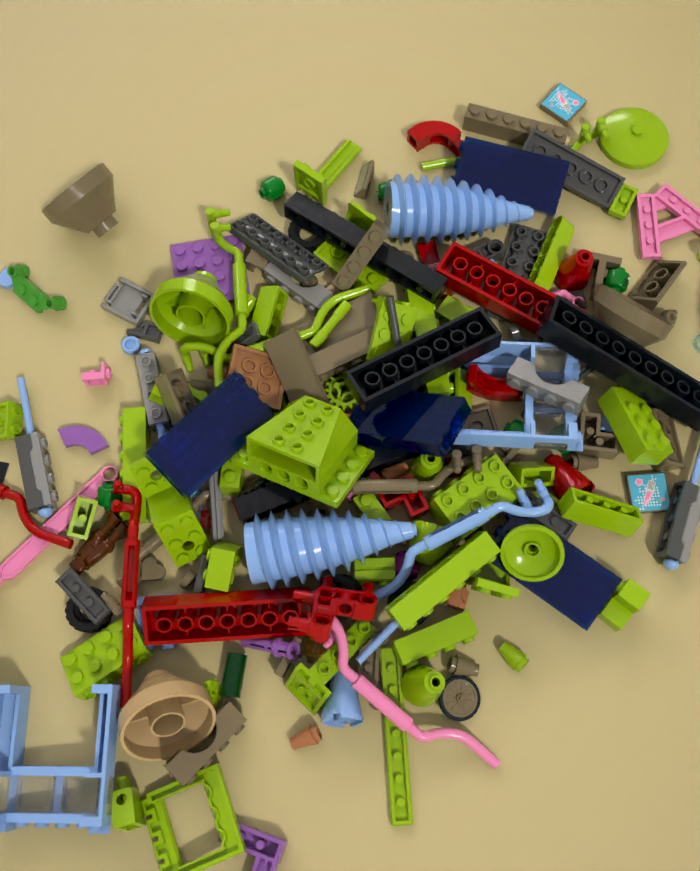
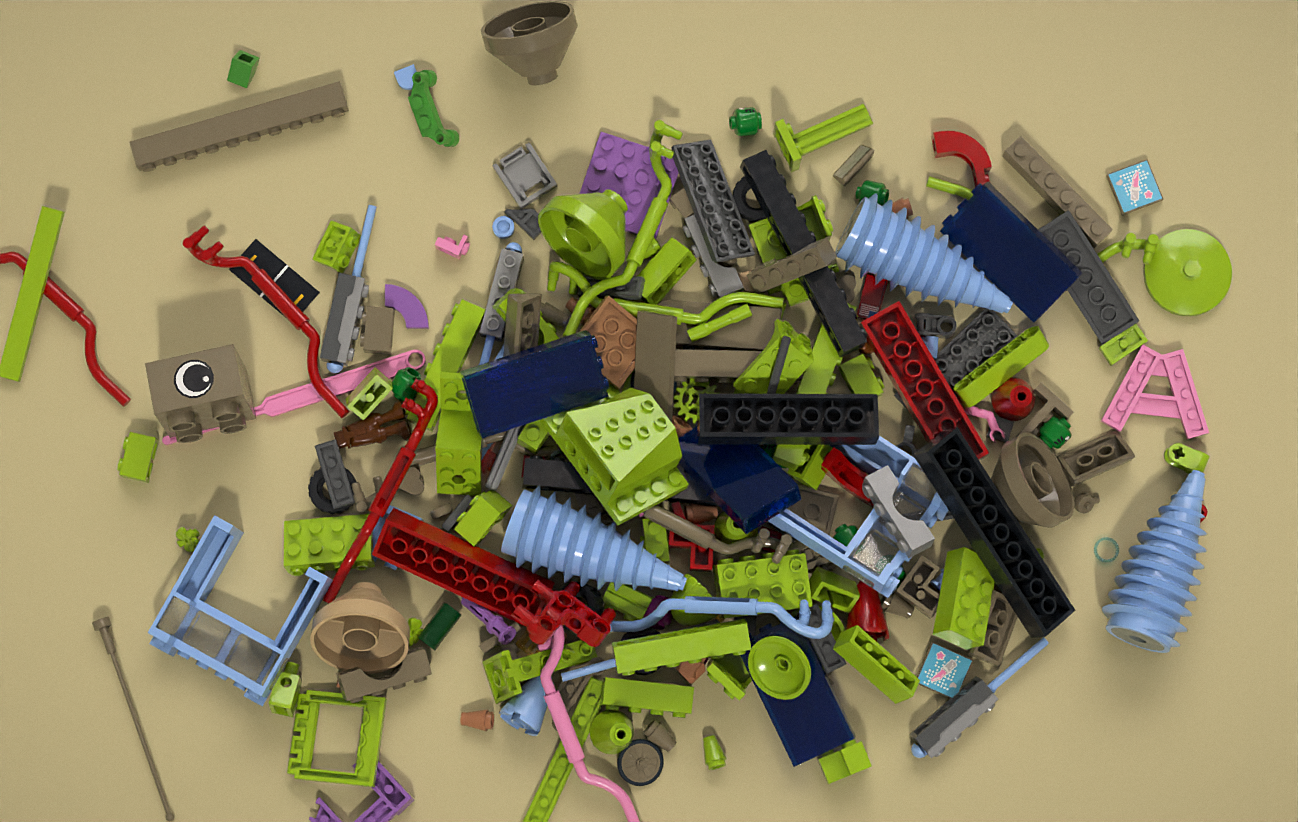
camera: 25 degrees right, 10 degrees up
(68, 466) = (378, 330): none -> dark tan brick

